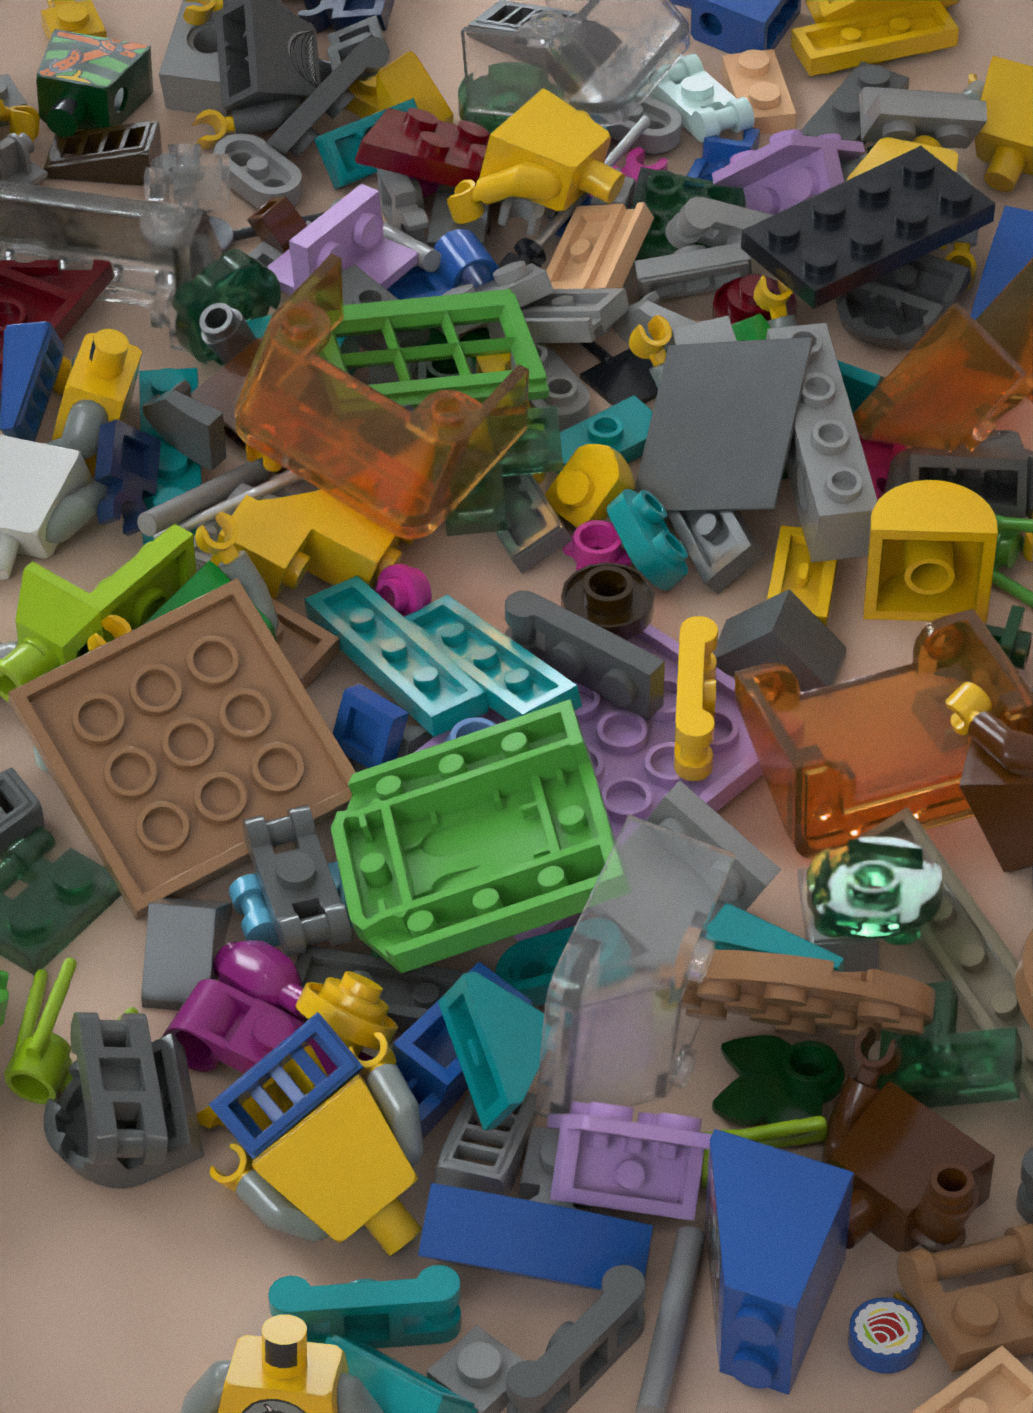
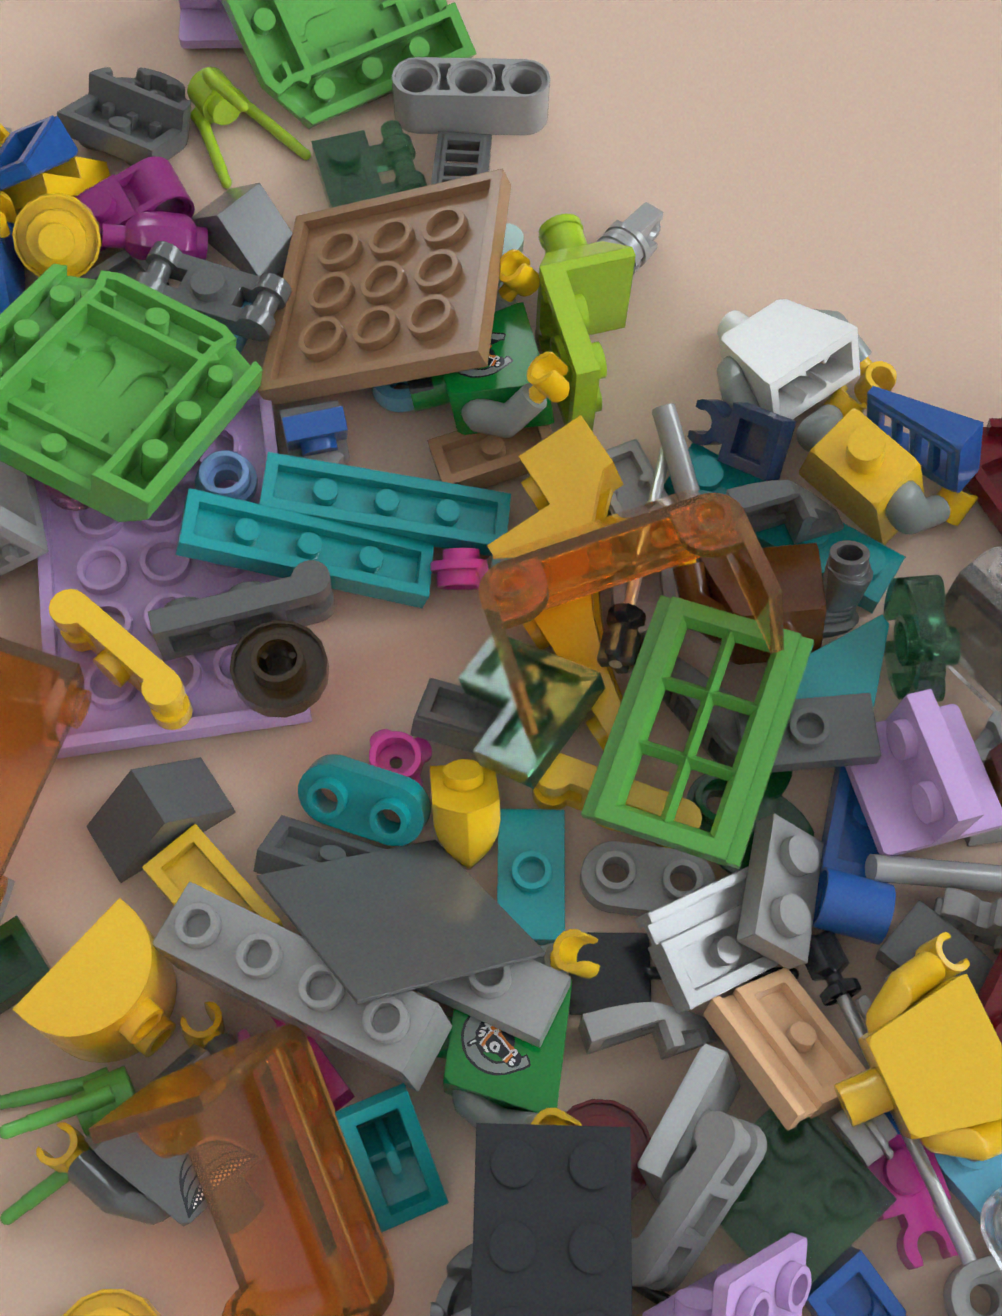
camera: 125 degrees right, 20 degrees up
(119, 1084) = (127, 87): dark grey plate -> none

